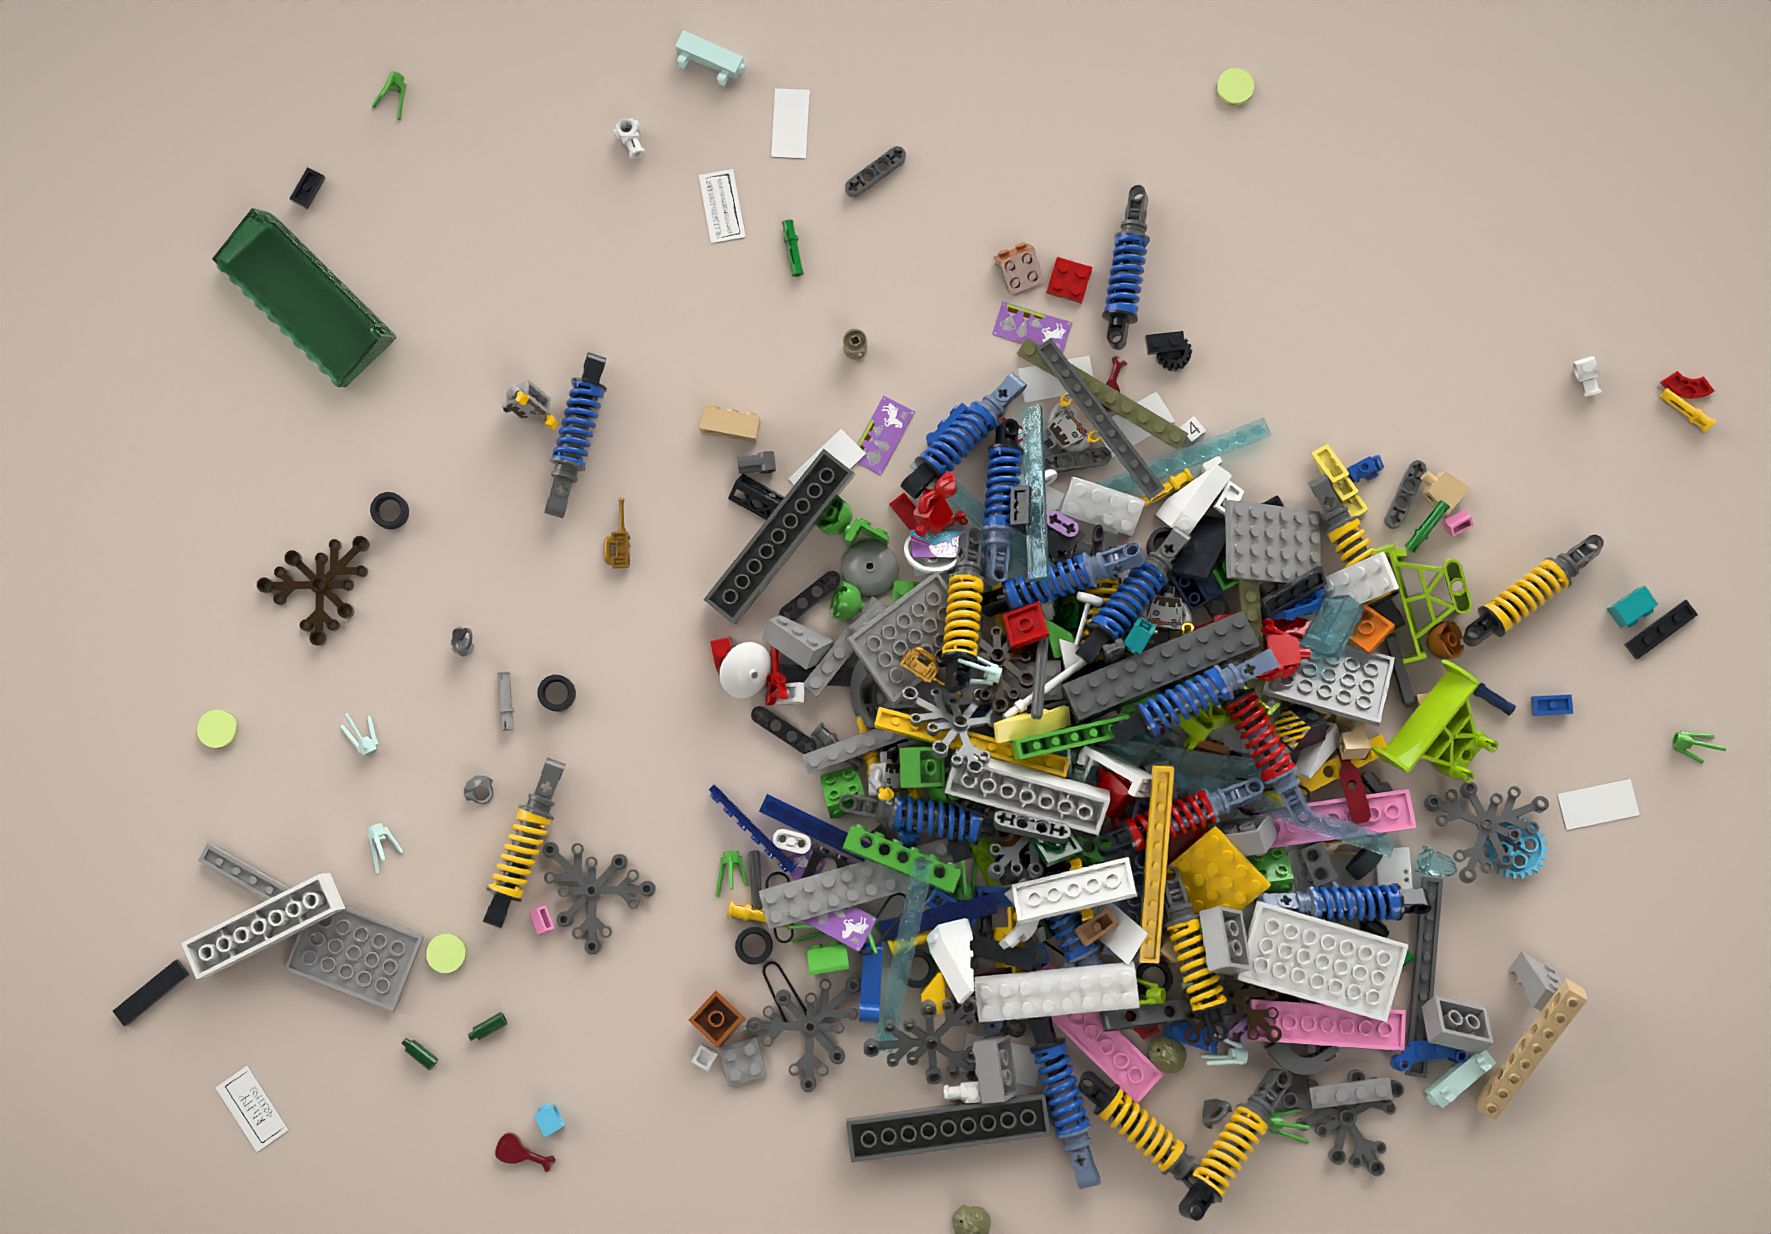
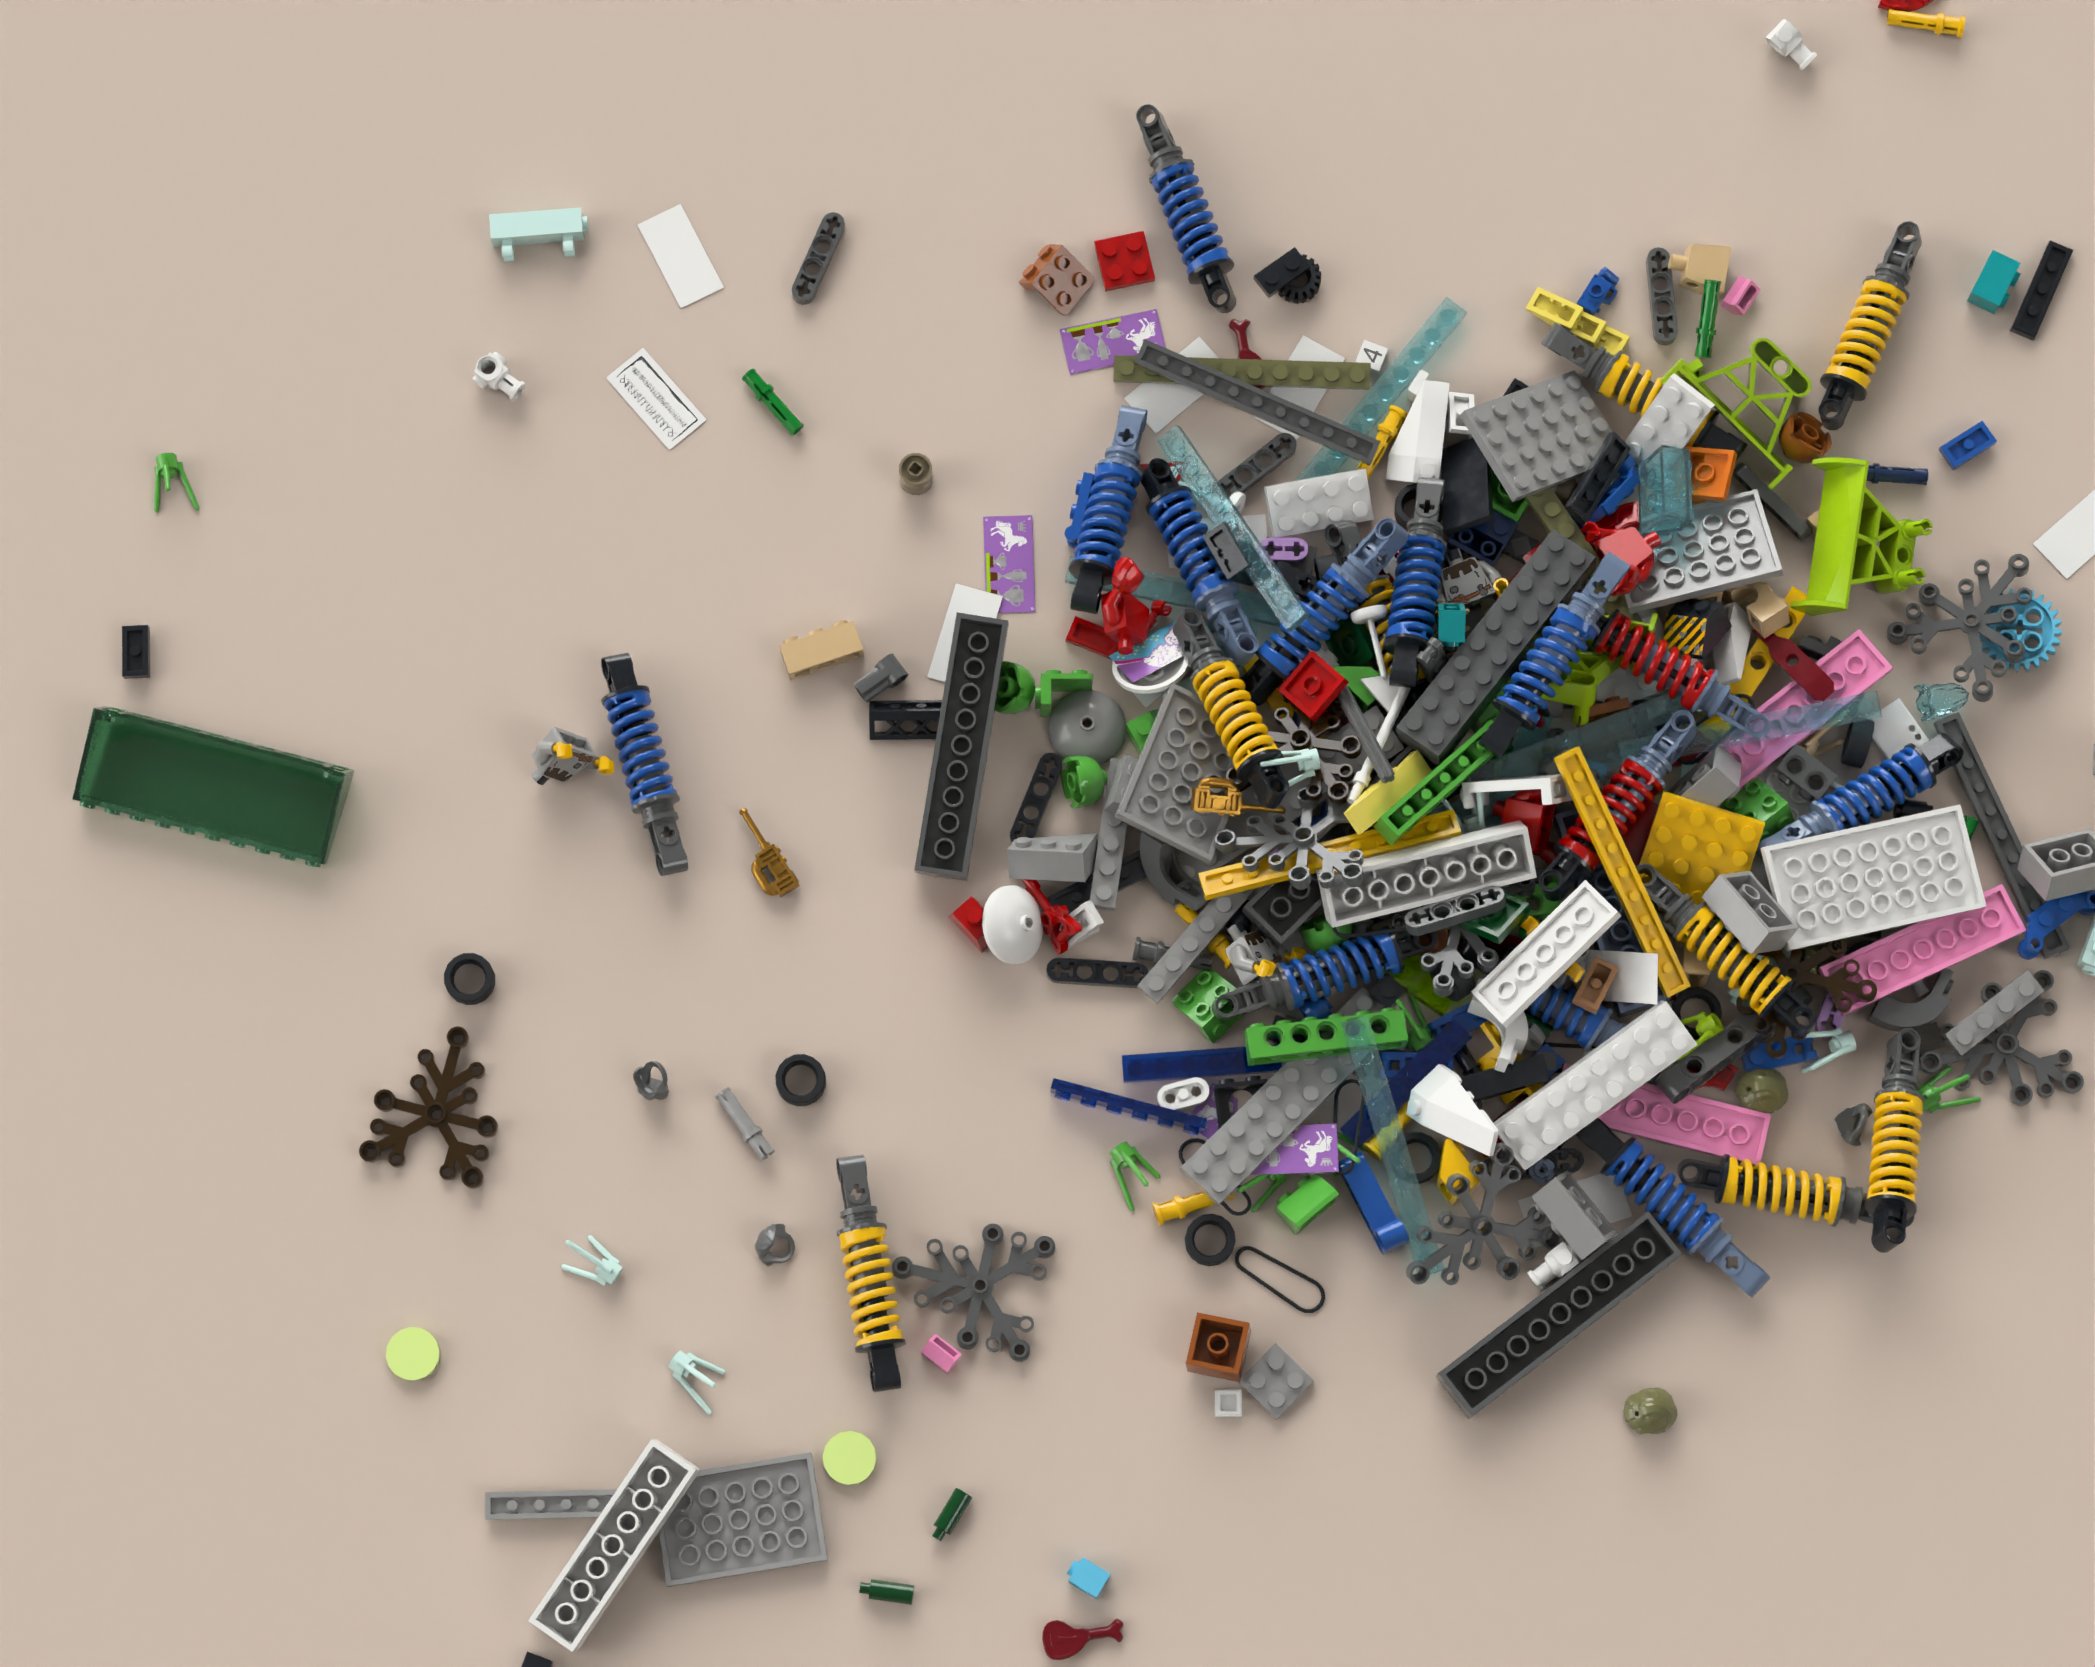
camera: 30 degrees left, 5 degrees down
(755, 878) = (1166, 1163): dark grey axle -> none
(827, 1010) = (1339, 1264): dark grey plant -> none
(921, 768) = (1288, 915): bright green slope -> none
(1067, 430) = (1225, 437): light grey torso -> none

